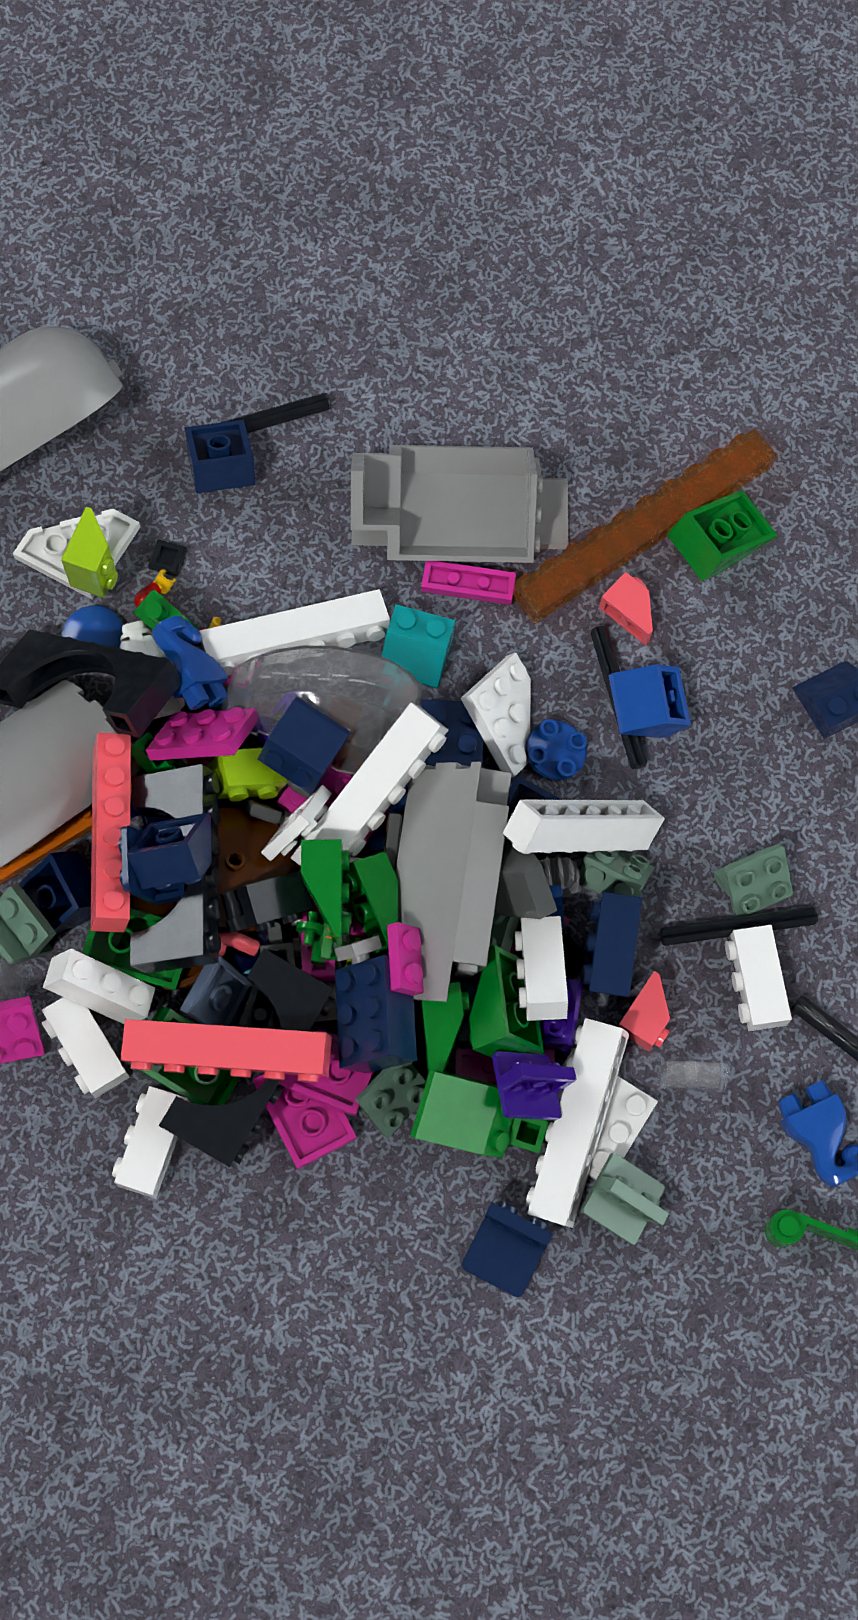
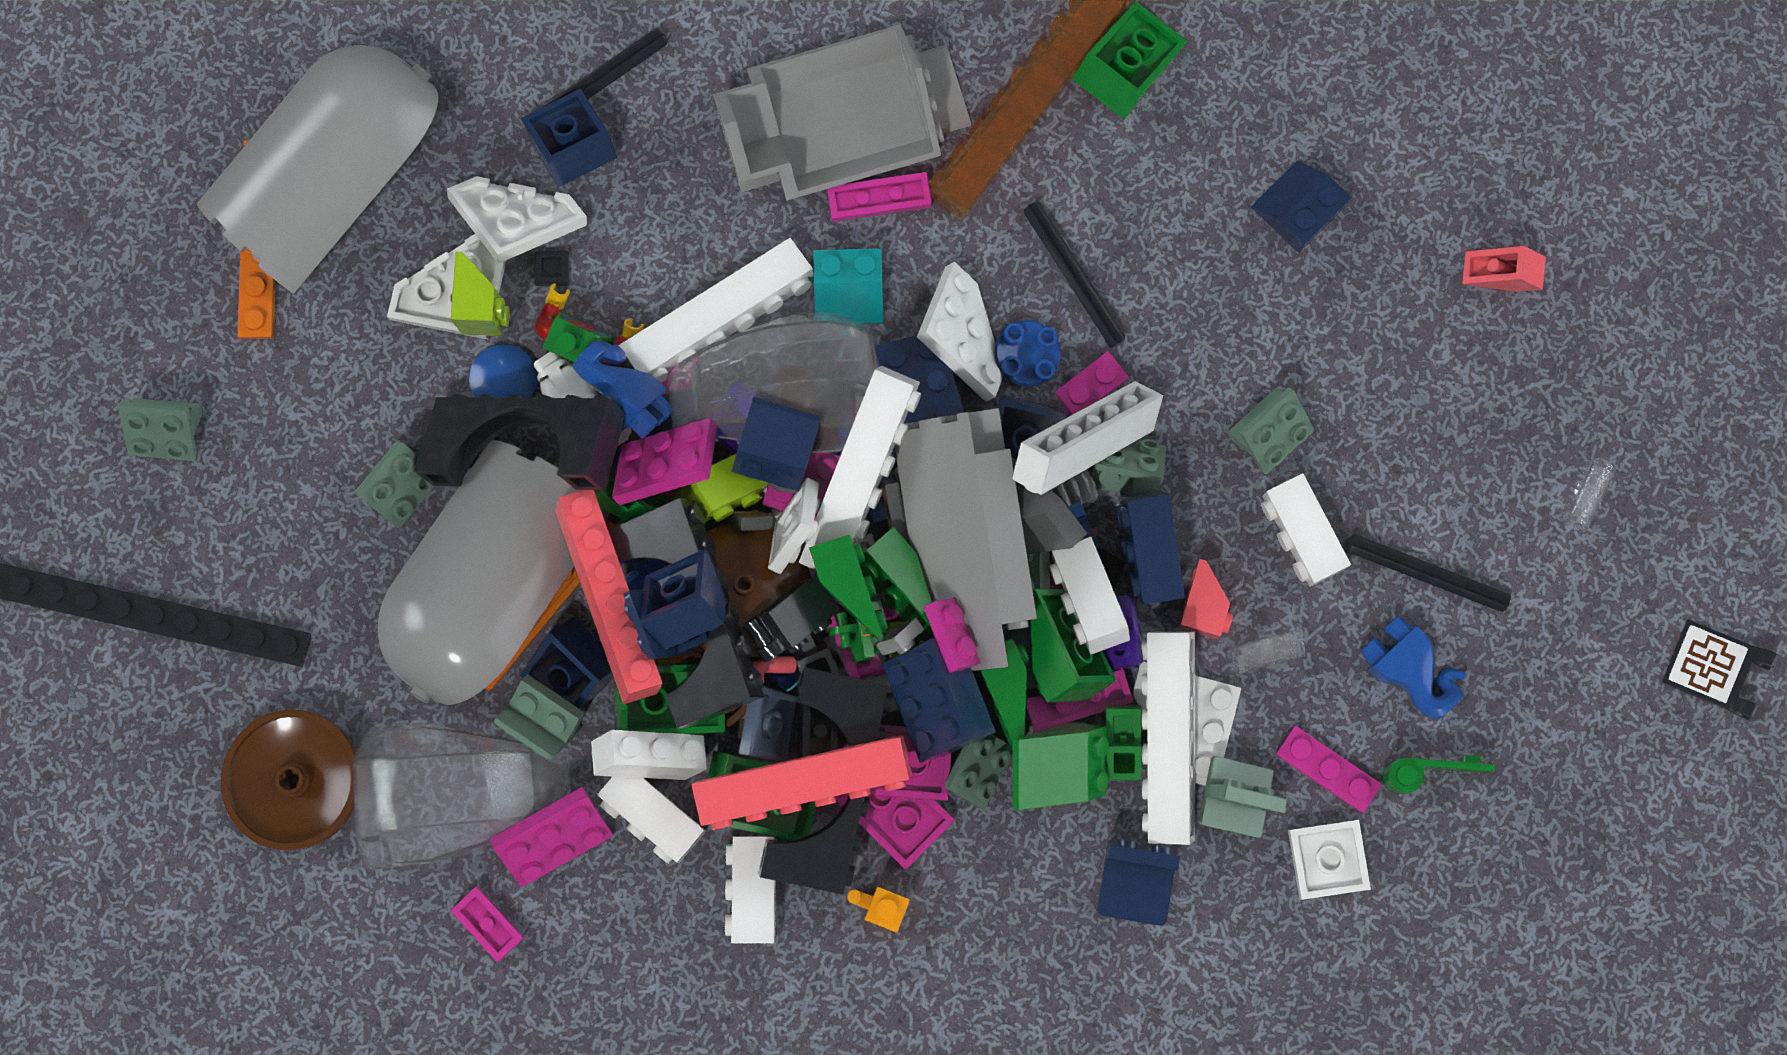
camera: 15 degrees left, 10 degrees up
(151, 509) = (514, 216): none -> white plate
(263, 1196) = (883, 908): none -> light orange brick
(530, 1085) = (1113, 718): dark purple bracket -> none
(614, 787) = (1092, 384): none -> dark pink plate
(629, 606) = (1057, 172): coral slope -> none
(650, 701) = (1110, 272): blue slope -> none
(693, 1285) = (1329, 859): none -> white plate
(717, 1202) = (1328, 769): none -> dark pink plate
(723, 927) = (1258, 486): black axle -> none

